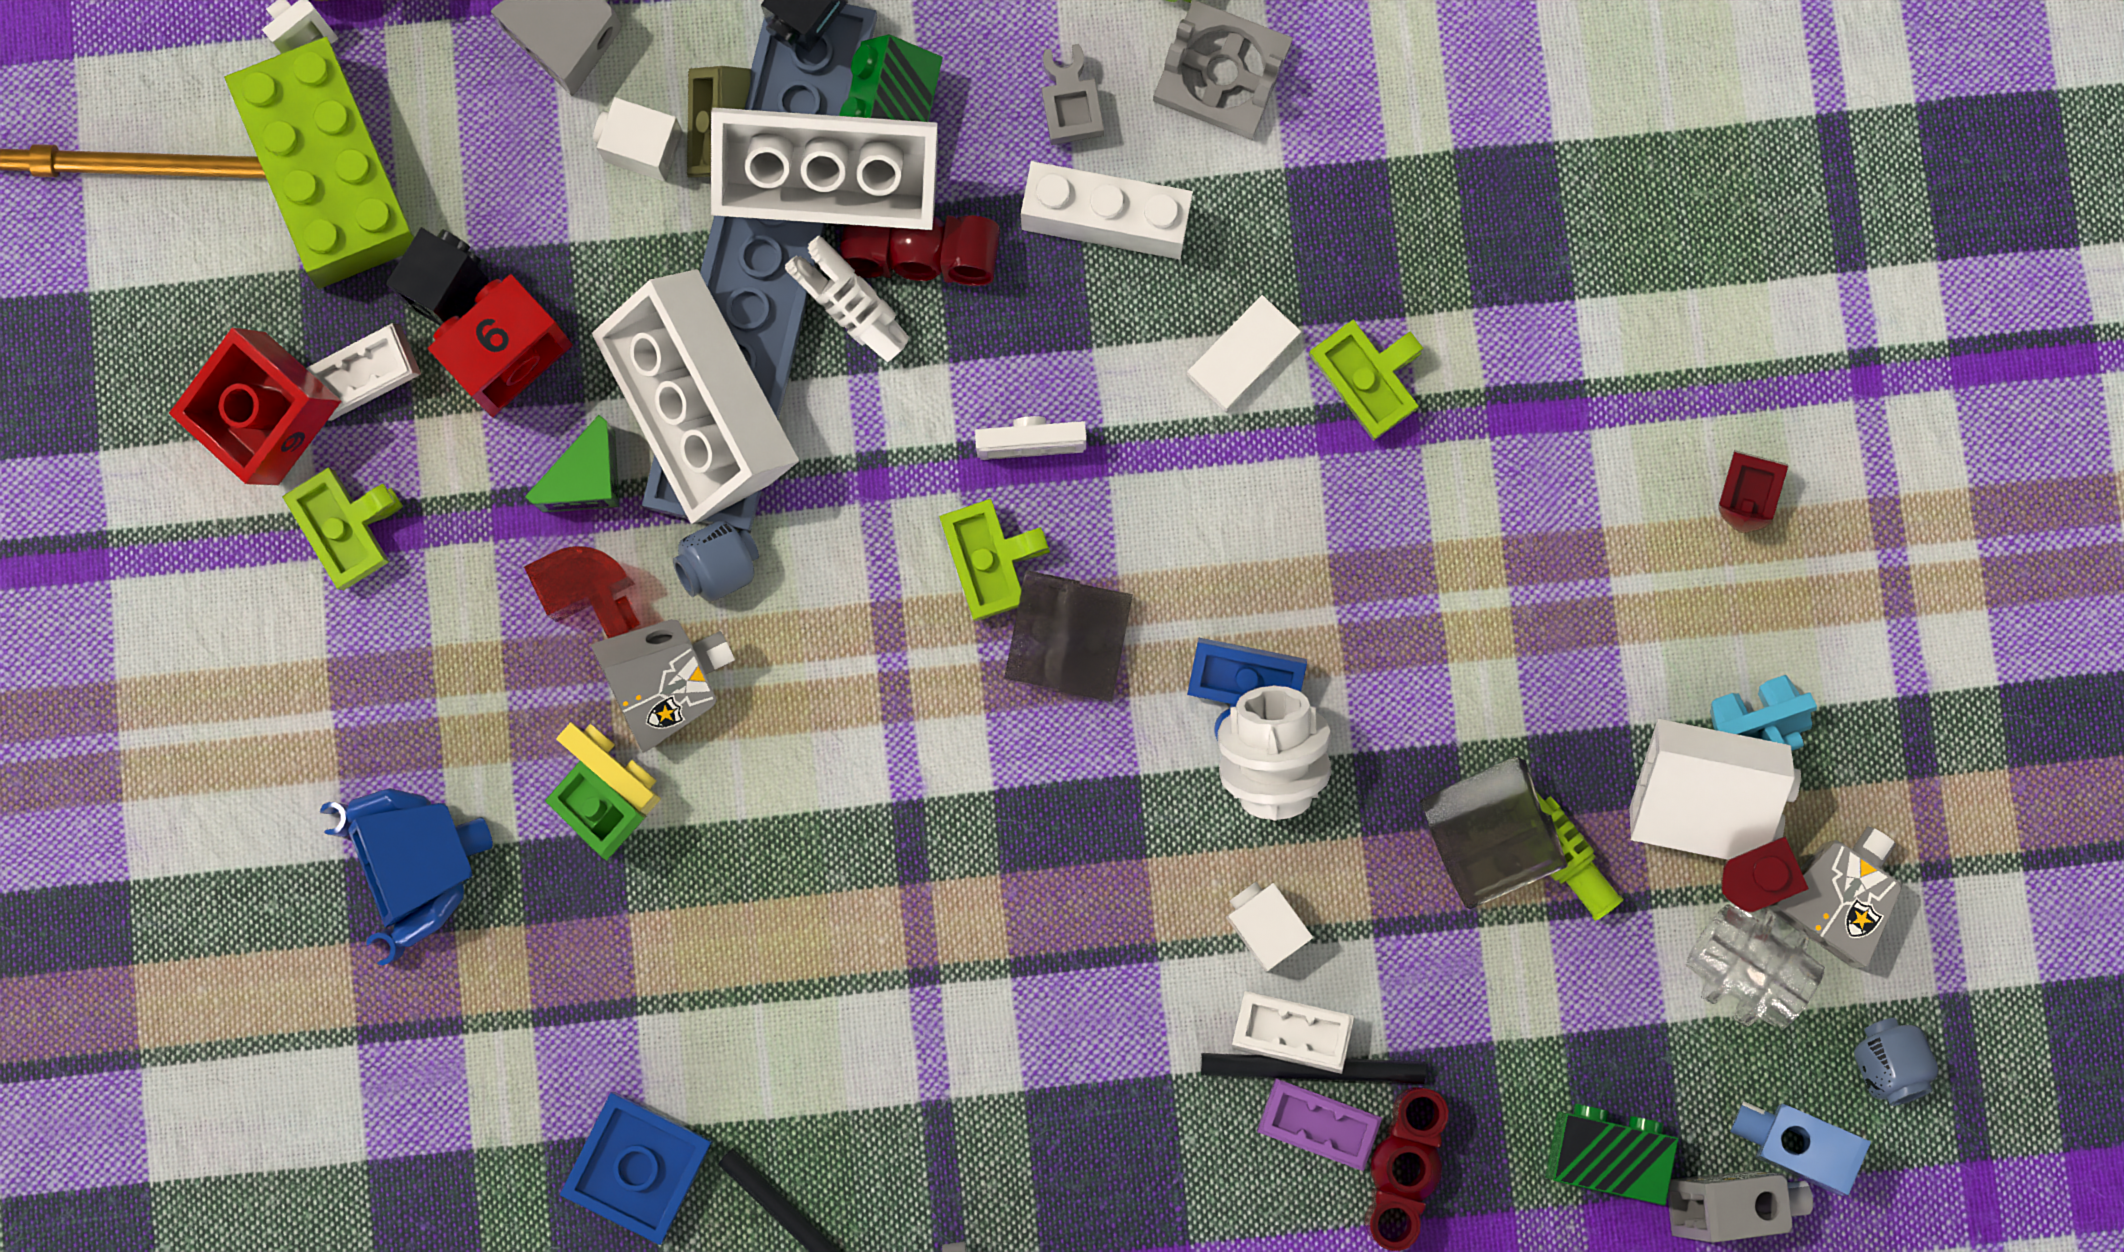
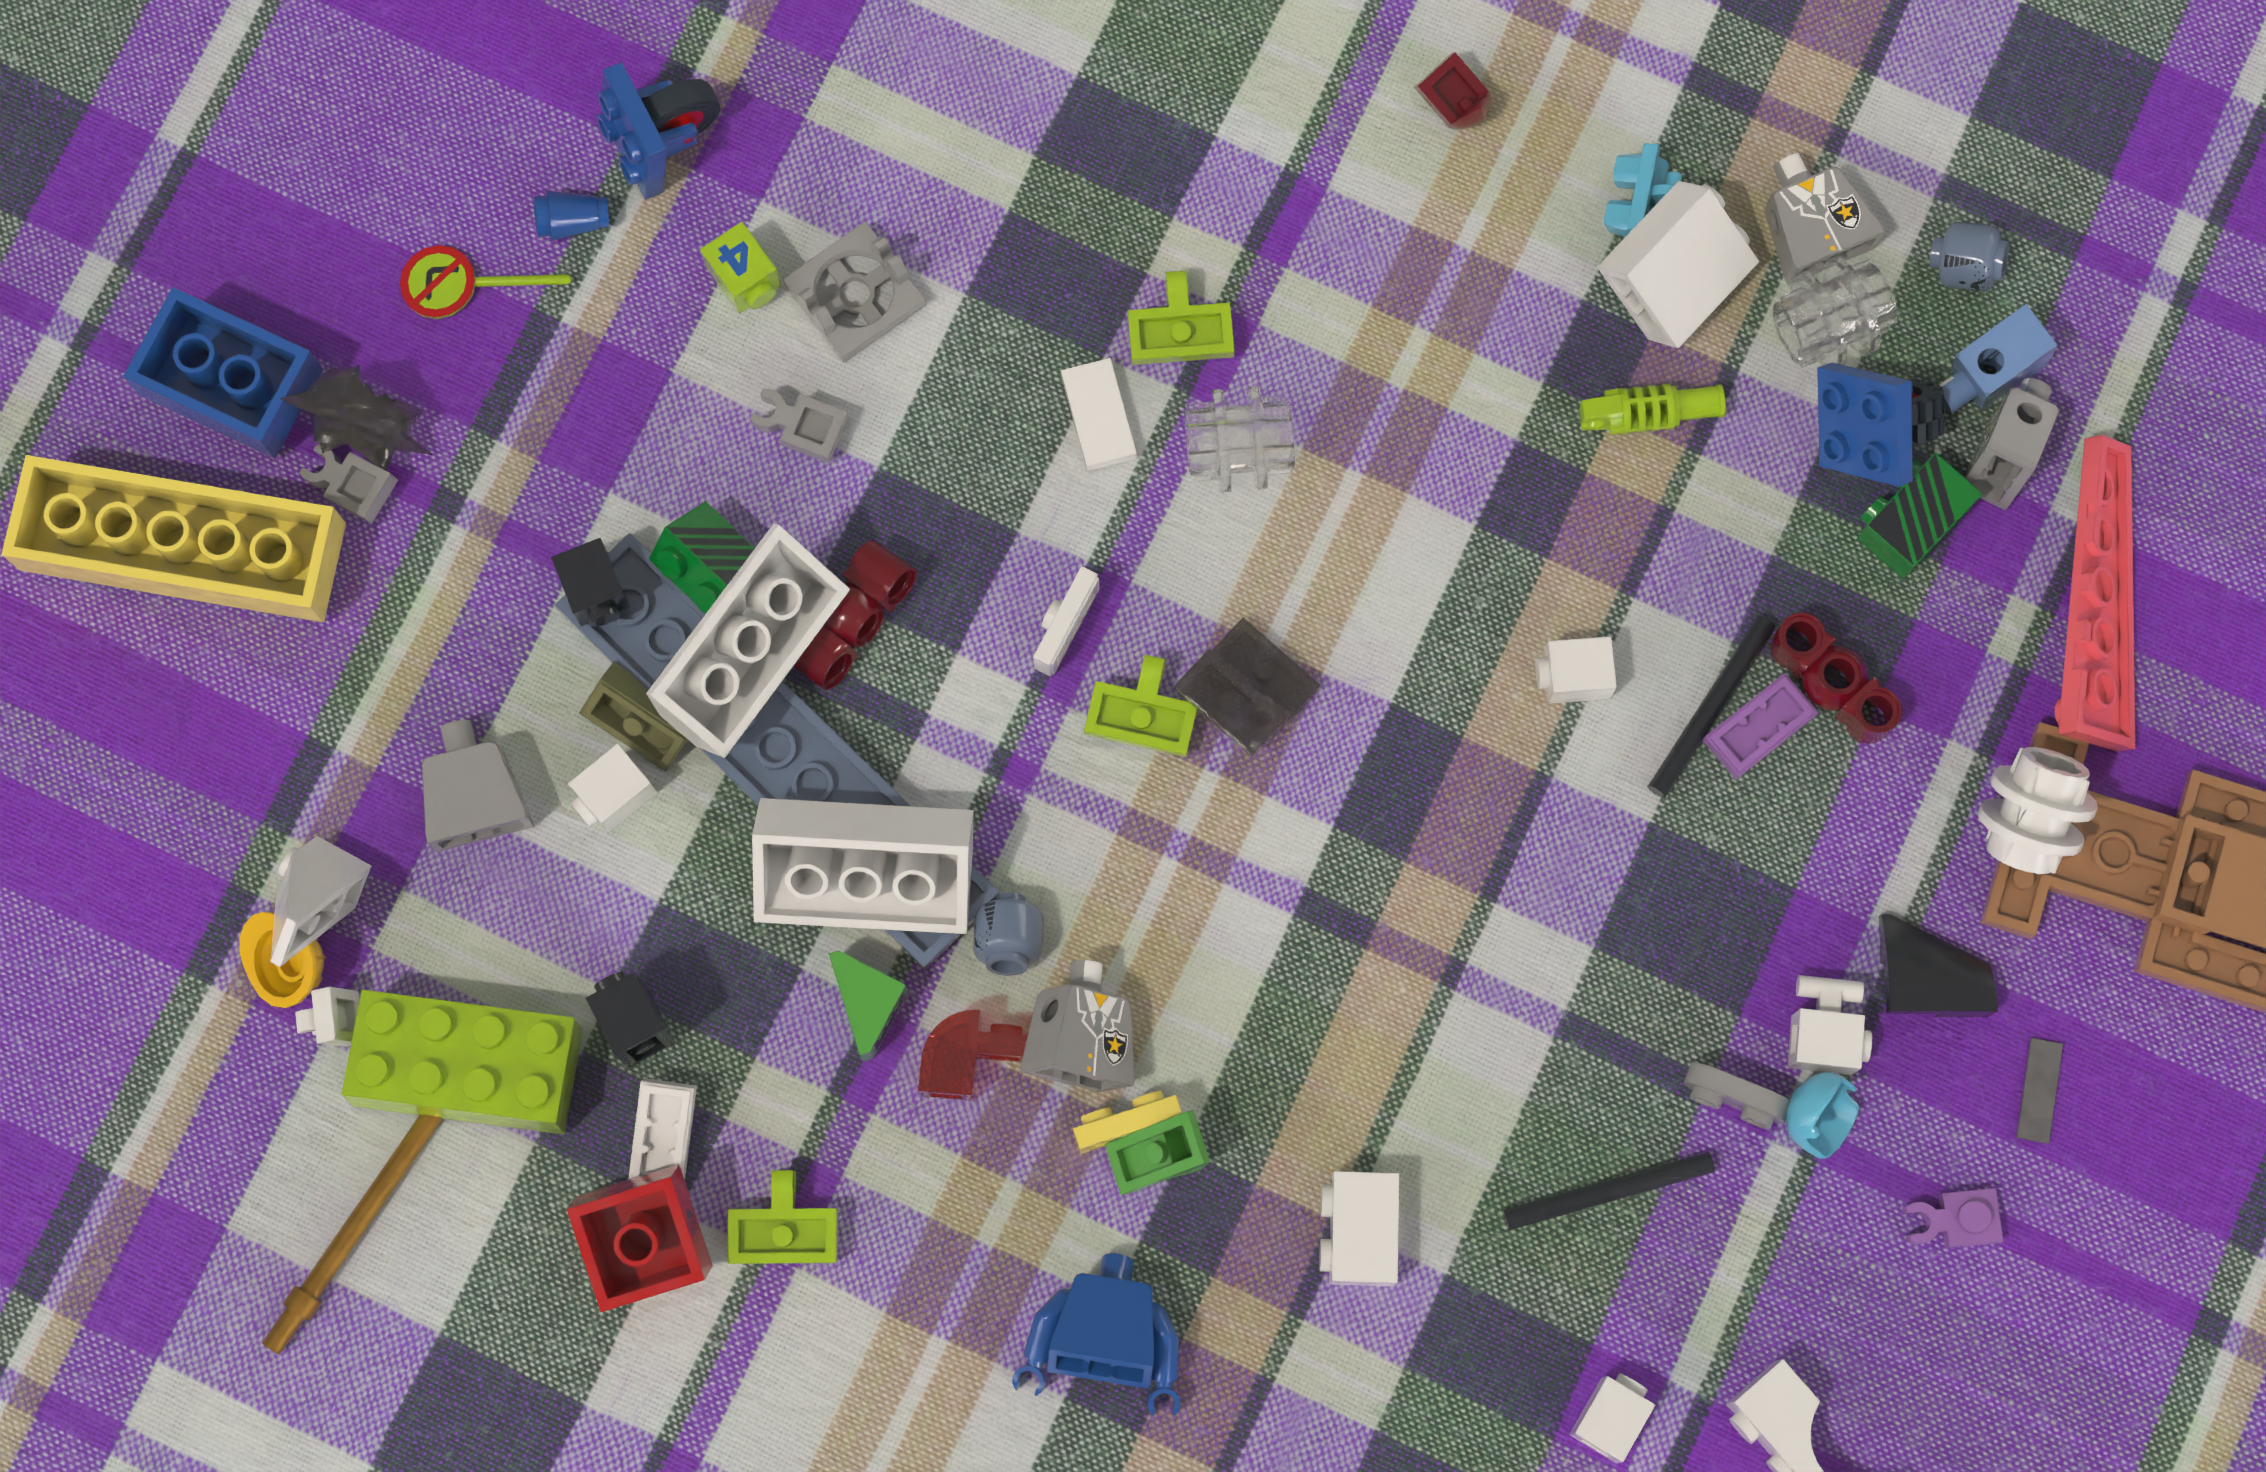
camera: 60 degrees left, 5 degrees down
(499, 344) = (718, 1000): red brick -> none
(636, 1032) = (1361, 1228): none -> white brick
(636, 1168) = (1474, 1297): blue plate -> none
(849, 299) = (860, 695): white hinge -> none
(1105, 210) = (915, 448): white brick -> none
(1229, 671) = (1368, 570): blue plate -> none
(1274, 752) = (1444, 576): white piece -> none
(1291, 490) = (1239, 438): none -> clear piece
(1293, 1032) = (1674, 702): white plate -> none
(1493, 833) = (1609, 449): clear smoke slope -> none
(1671, 1062) = (1874, 420): none -> blue plate
(1762, 876) = (1768, 263): dark red plate -> none

